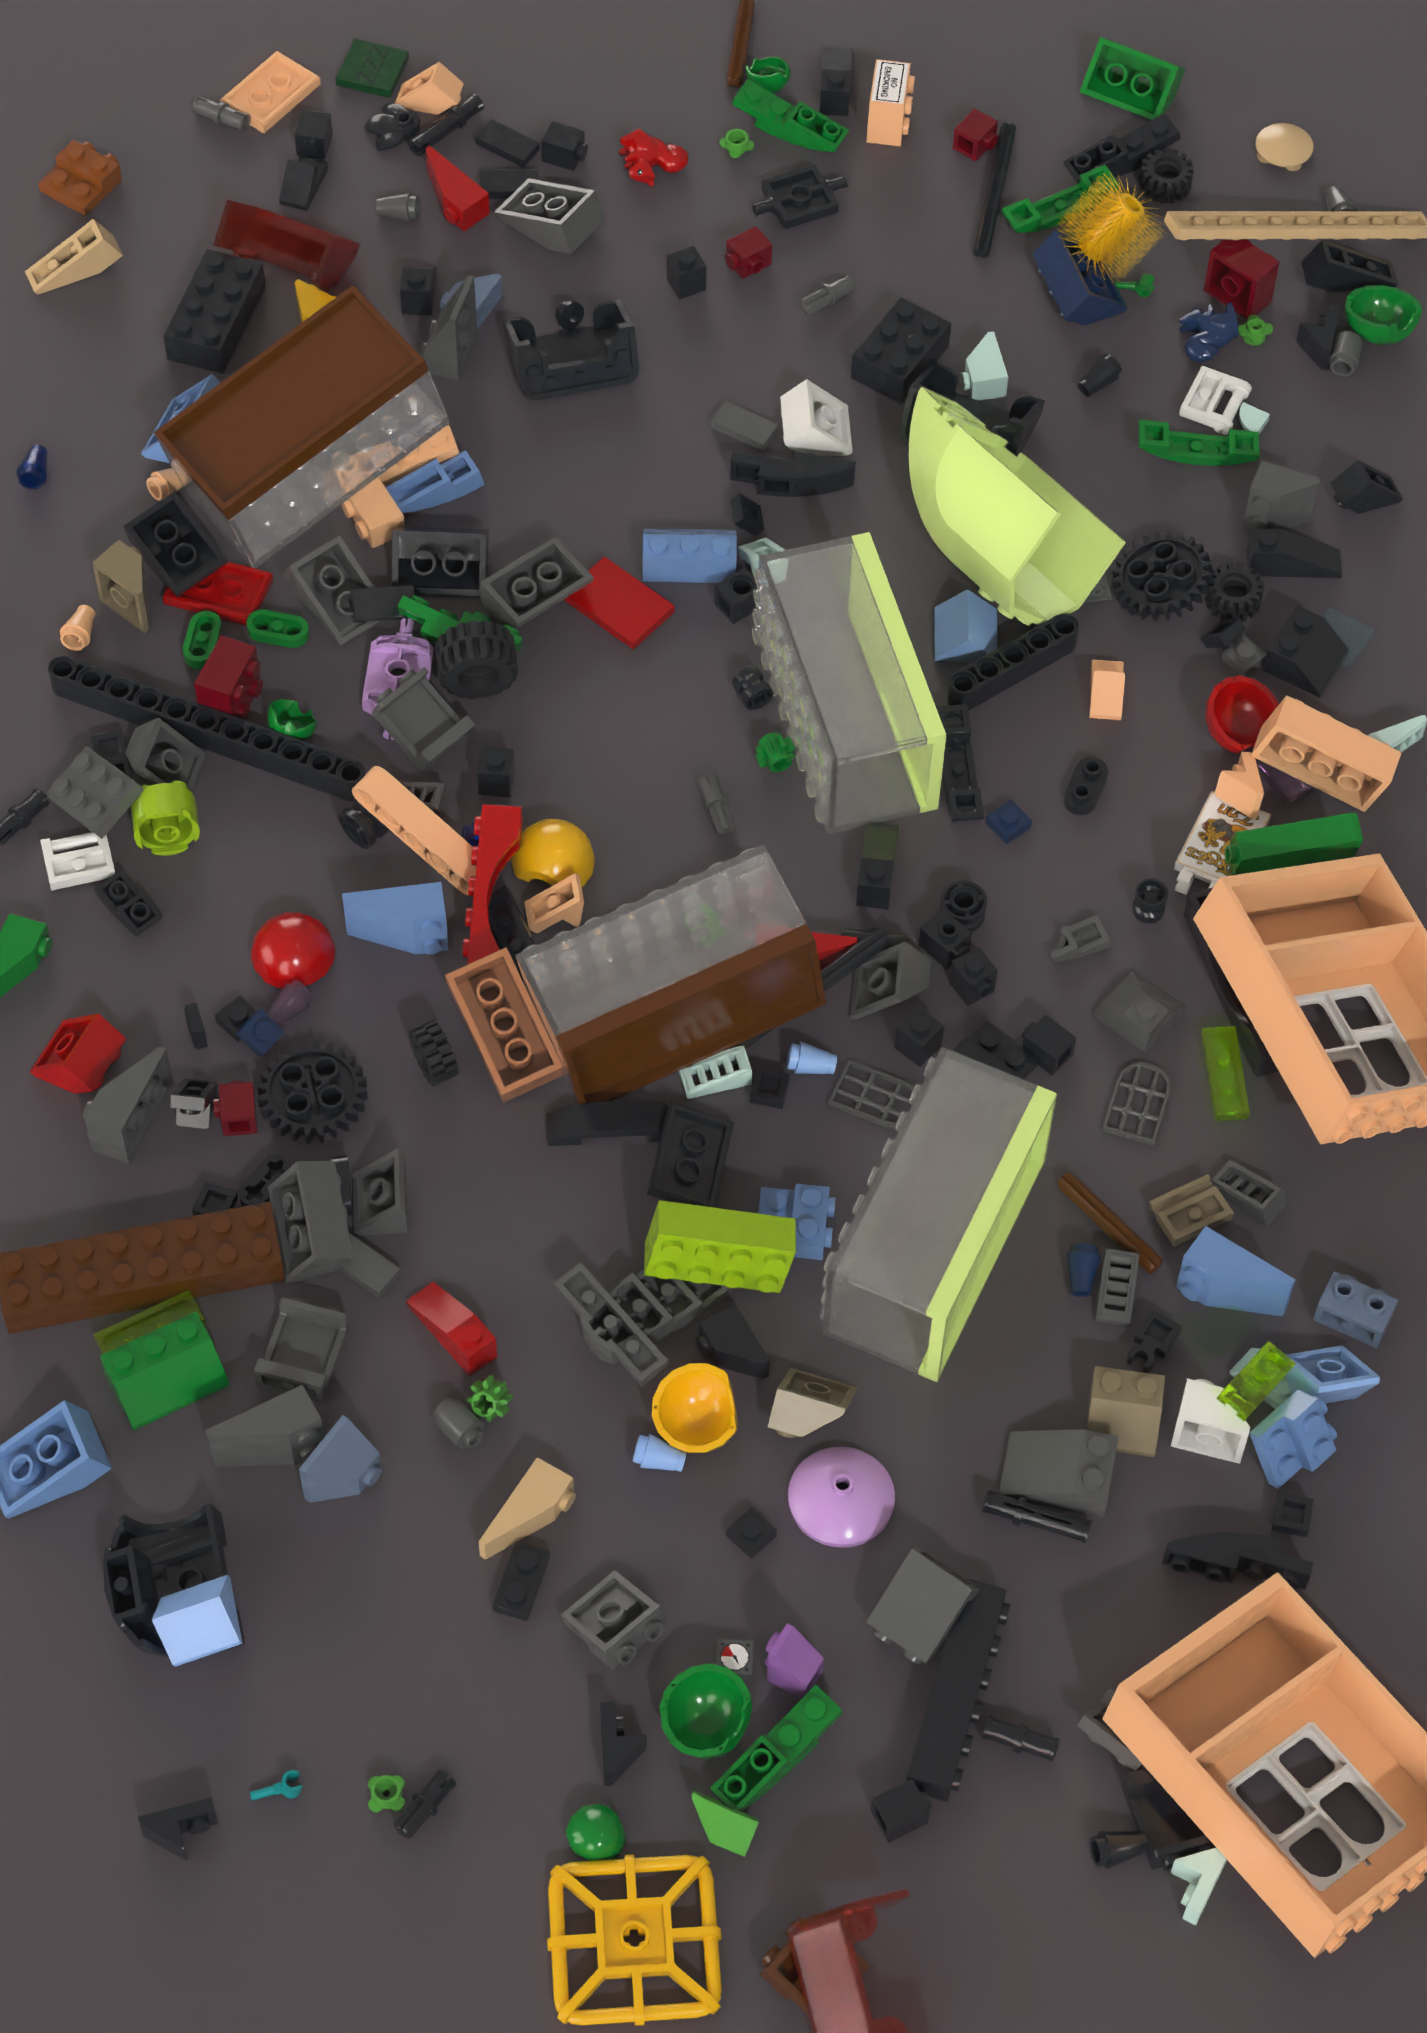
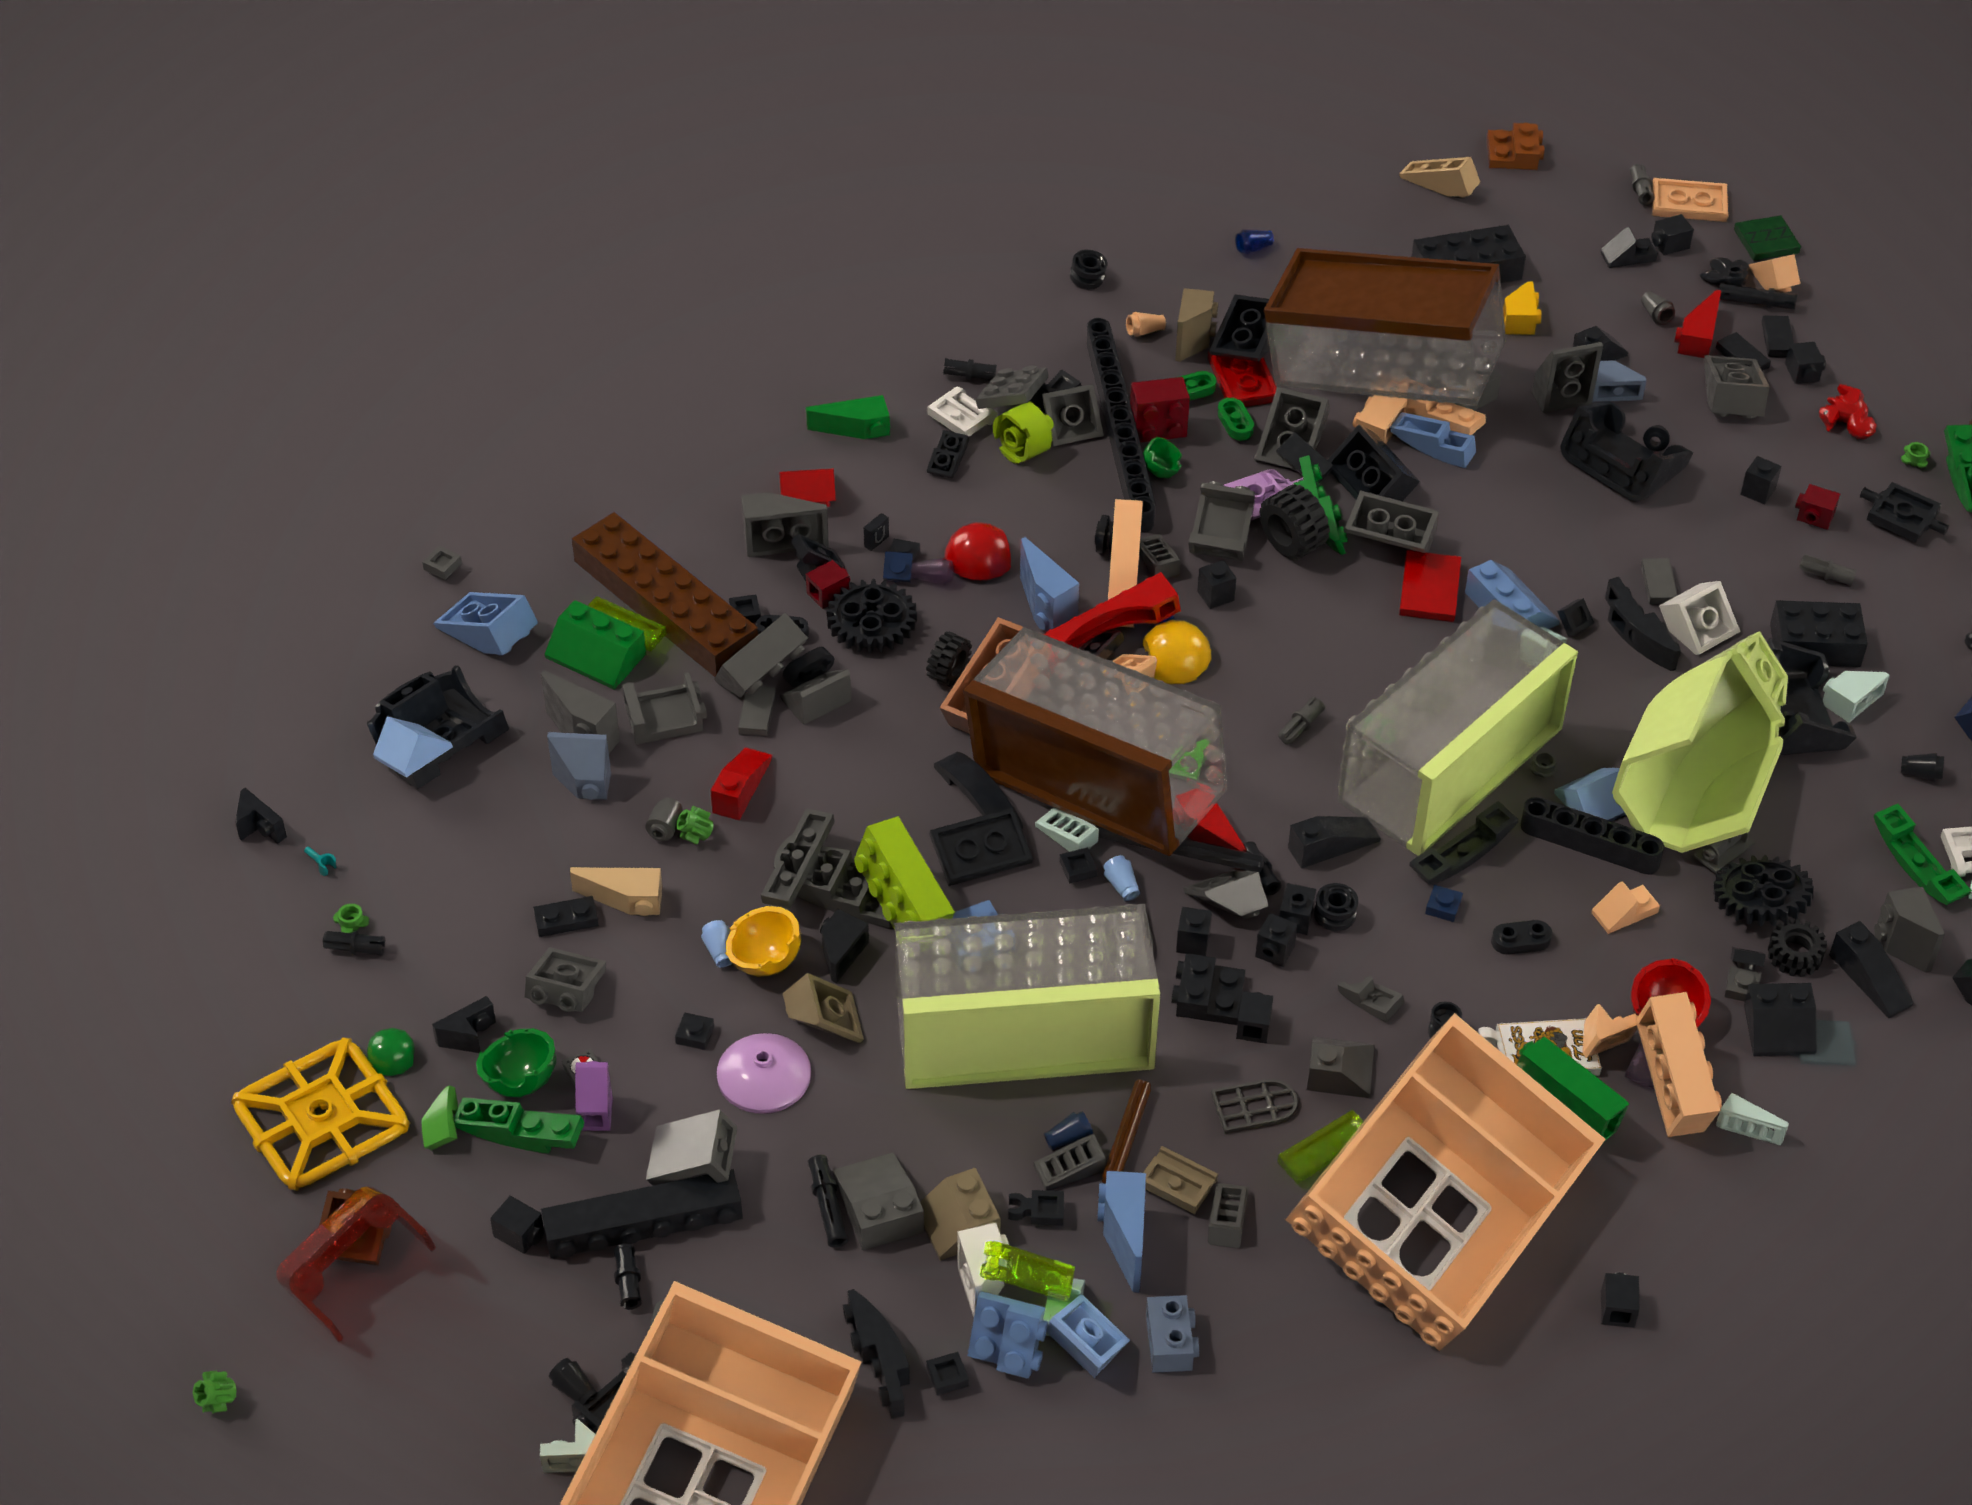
camera: 60 degrees right, 10 degrees down
(285, 243) = (1568, 272): clear red windscreen -> none

